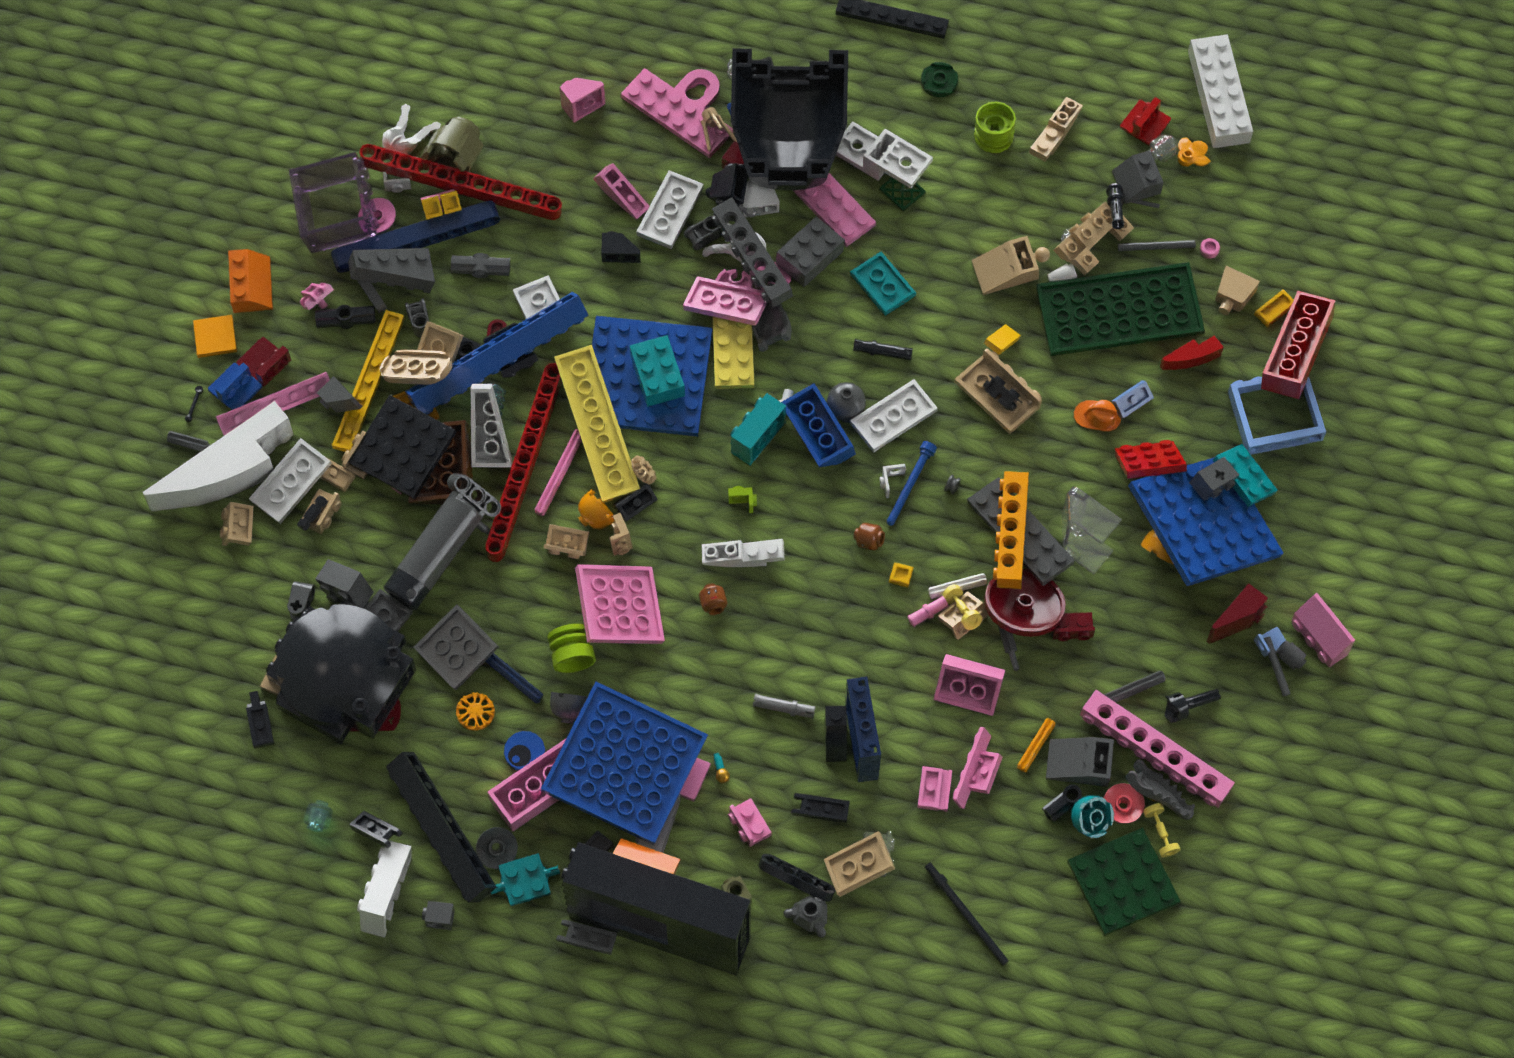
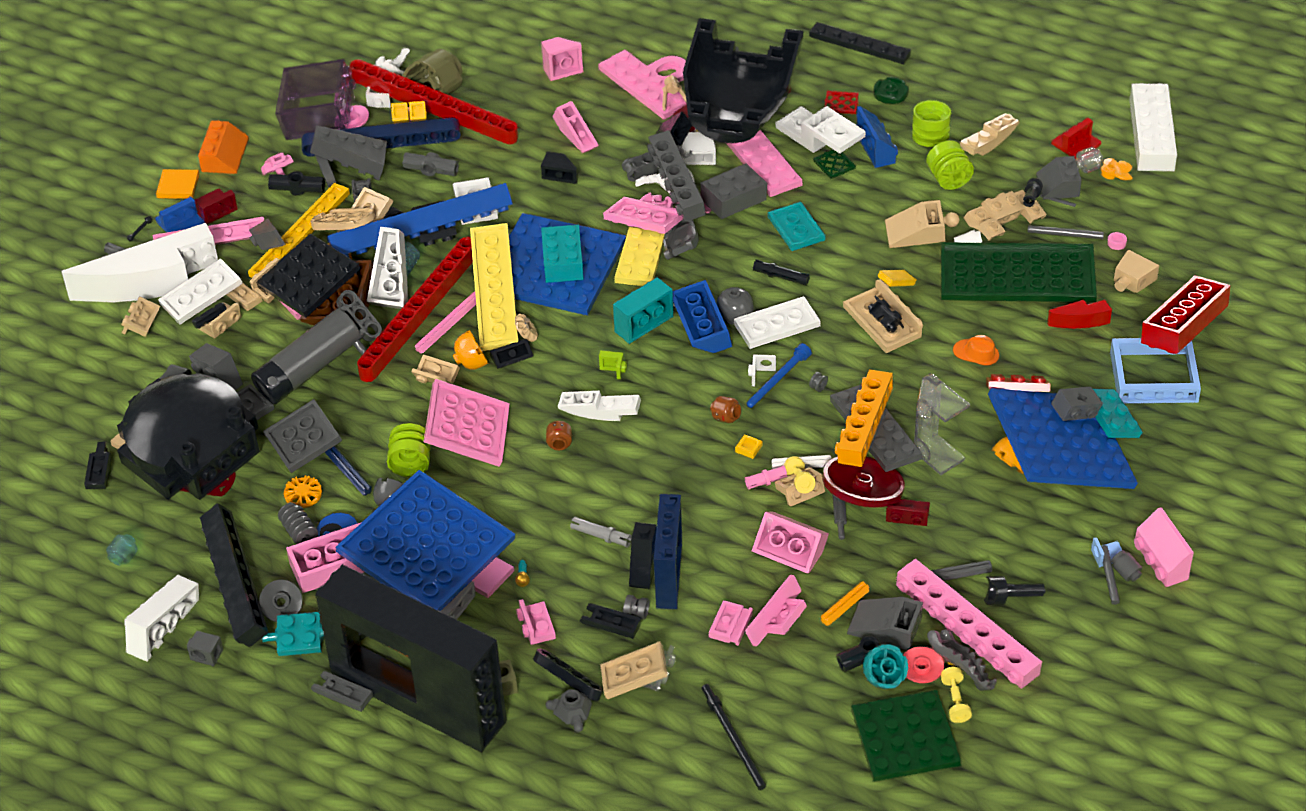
camera: 15 degrees right, 20 degrees down
(374, 829) = (170, 565): black hinge -> none
(484, 756) = (297, 523): none -> dark grey piece
(621, 540) = (484, 372): tan bracket -> none
(670, 209) = (615, 147): white plate -> none
(836, 786) = (636, 606): none -> flat silver wheel
(891, 115) = (846, 109): none -> red window
(945, 160) = (876, 140): none -> blue slope
(1025, 182) = (950, 165): none -> lime wheel
(1132, 399) = (1013, 340): medium blue plate -> none
(1240, 615) = (1077, 522): dark red slope -> none
(1274, 308) = (1162, 294): yellow tile -> none

